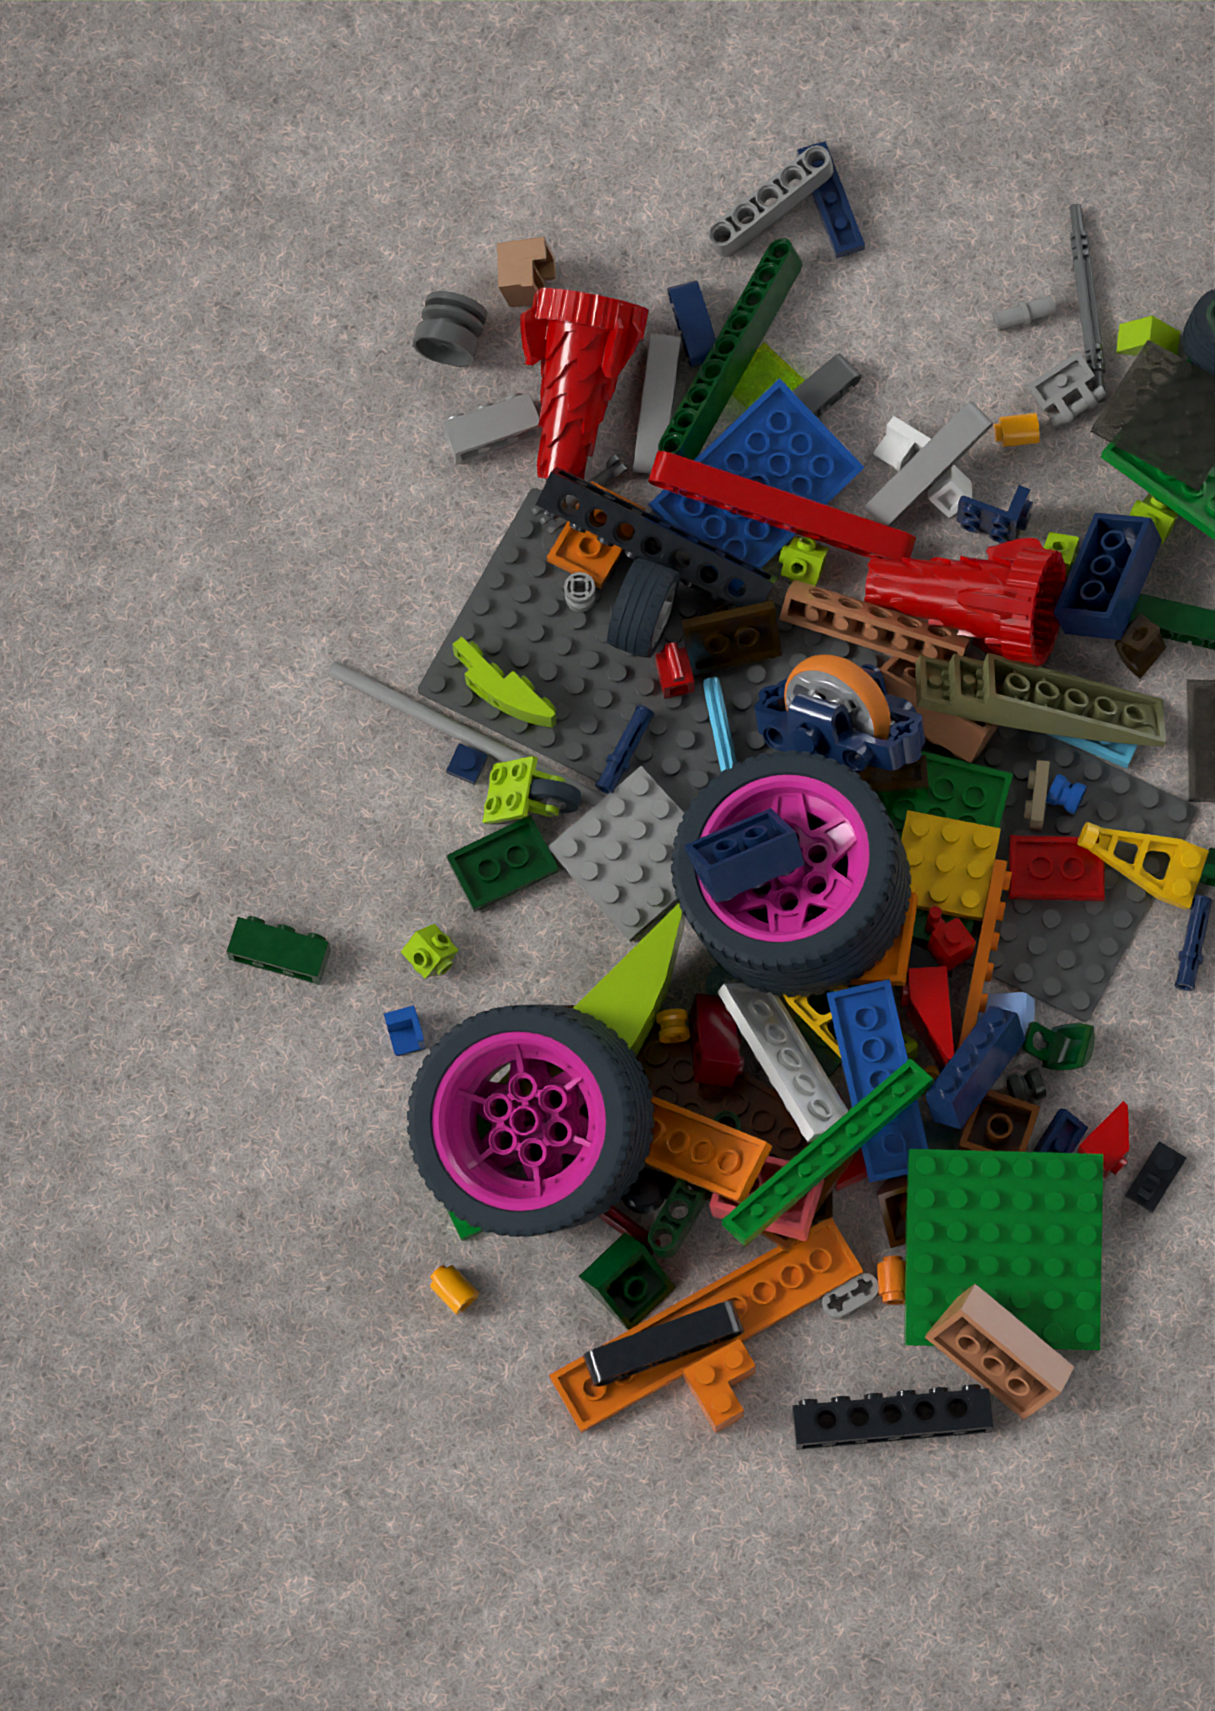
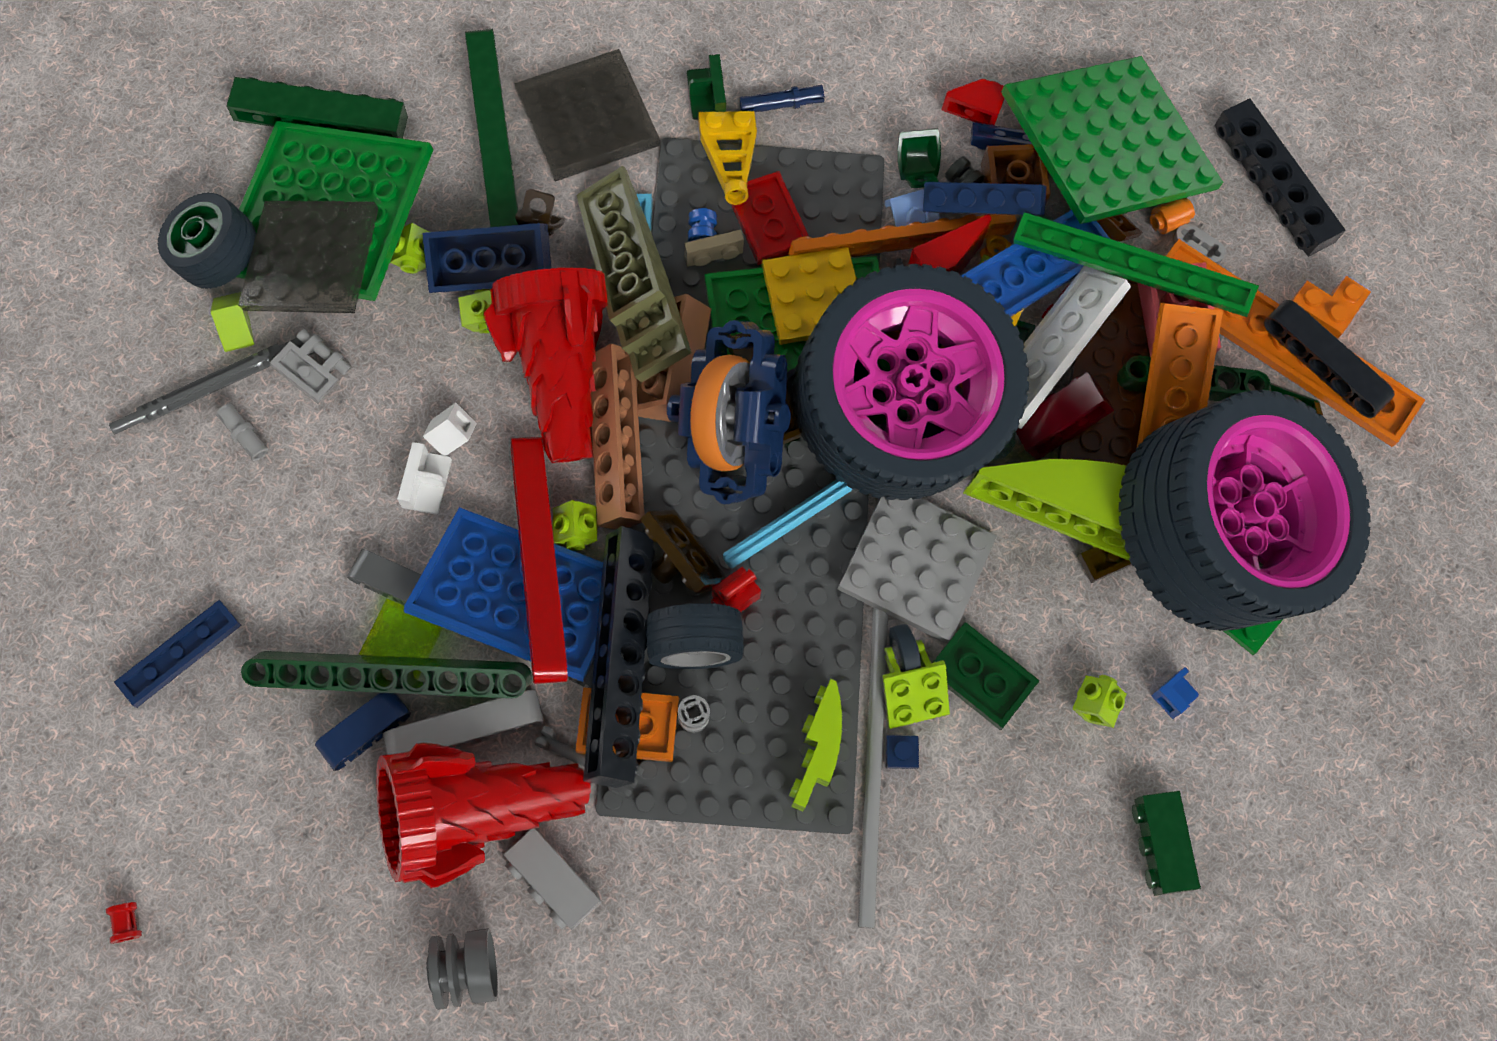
camera: 125 degrees left, 0 degrees up
(453, 1288) = (1377, 552): light orange brick -> none
(524, 269) = (369, 922): medium nougat plate -> none
(612, 93) = (123, 922): none -> red bush
(619, 760) = (828, 608): dark blue pin -> none
(673, 1026) = (1068, 450): light orange wheel -> none
(745, 855) = (931, 408): dark blue slope -> none
(775, 187) = (189, 694): light grey beam -> none
(929, 465) = (437, 445): light grey beam -> none
(948, 942) = (885, 253): red brick -> none
(999, 524) = (459, 357): dark blue bracket -> none
(1000, 1352) = (1193, 107): nougat slope -> none
(1017, 430) = (366, 393): light orange brick -> none
(1155, 1177) = (985, 65): black plate -> none

